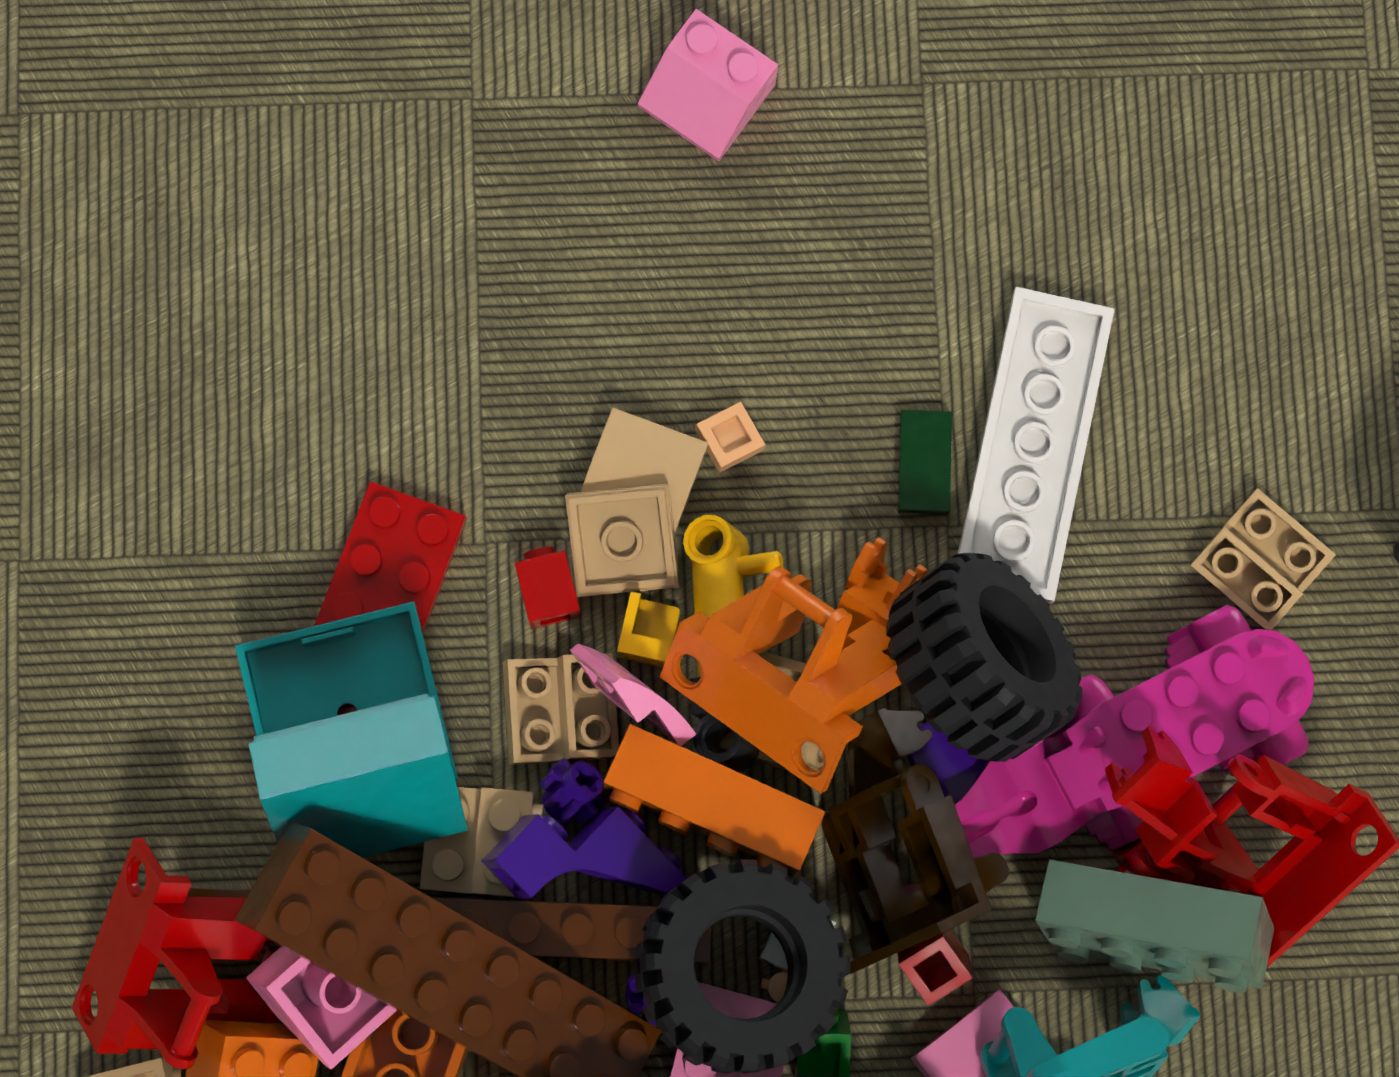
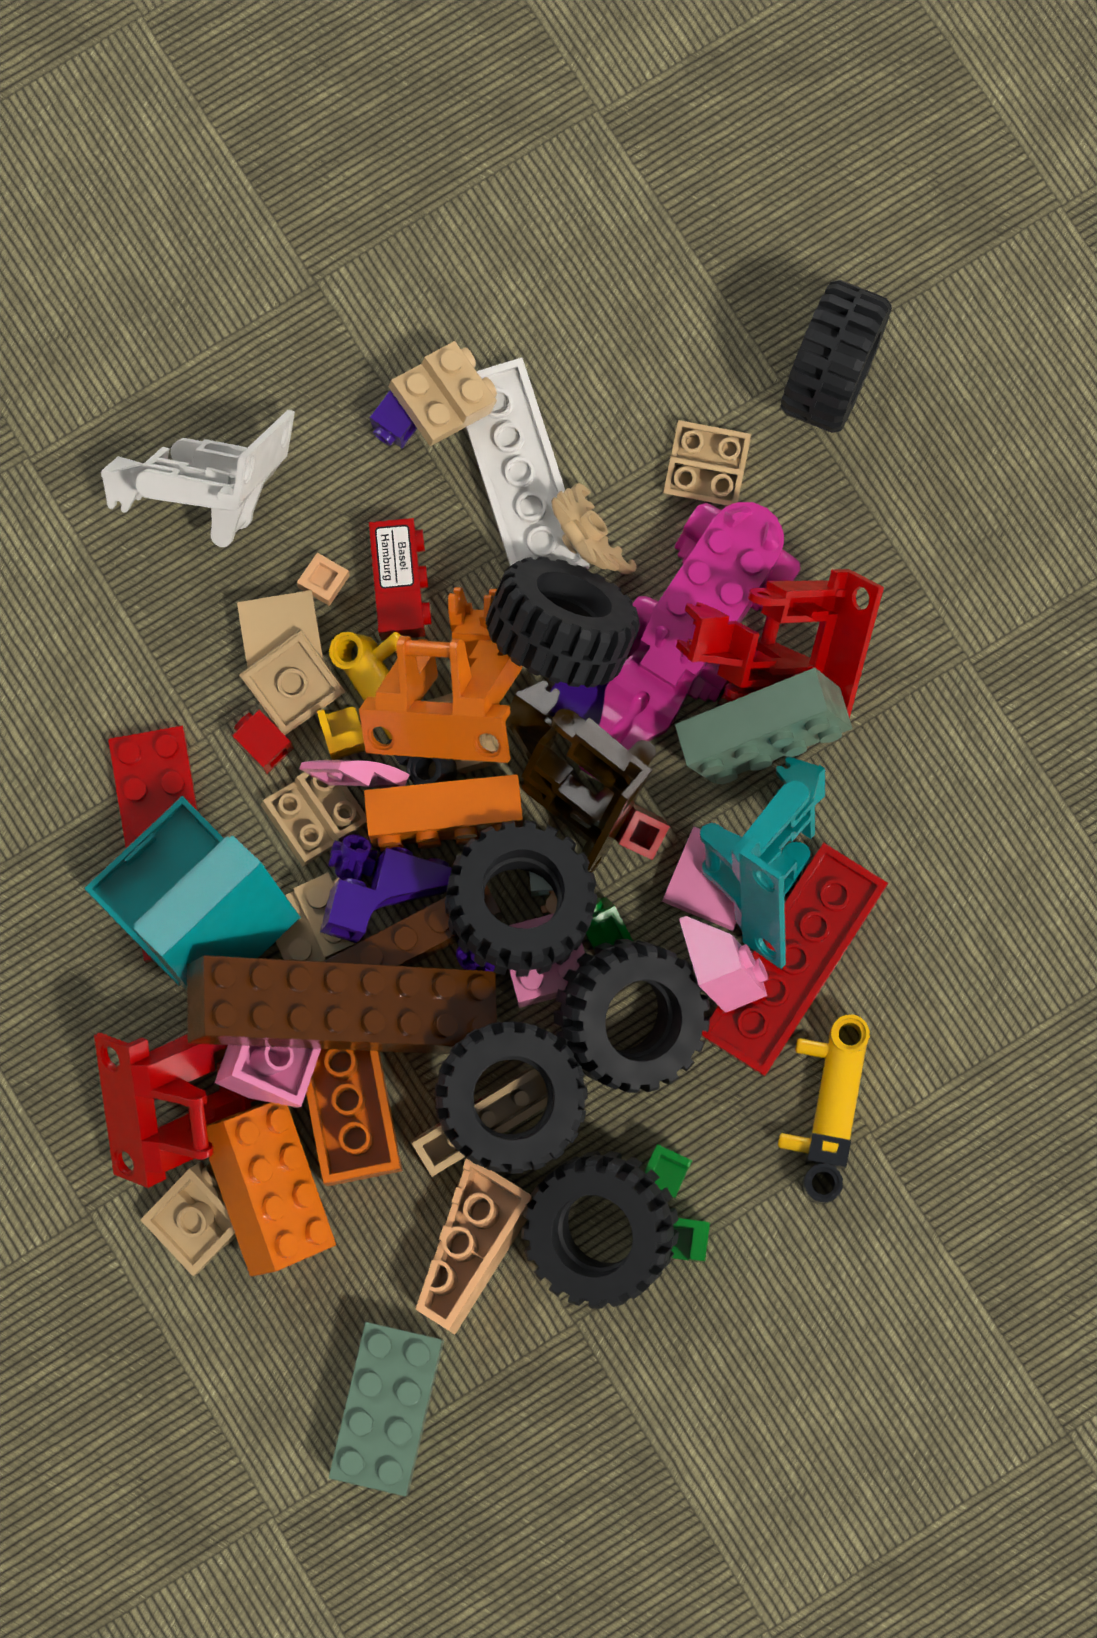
camera: 20 degrees left, 0 degrees up
(678, 254) = (204, 475): none -> white container
(708, 85) = (178, 361): bright pink slope -> none
(819, 488) = (399, 578): none -> red brick
(924, 462) = (457, 524): dark green tile -> none
(928, 295) = (392, 422): none -> dark purple brick
(999, 299) = (444, 393): none -> tan plate
(1074, 561) = (586, 531): none -> tan animal

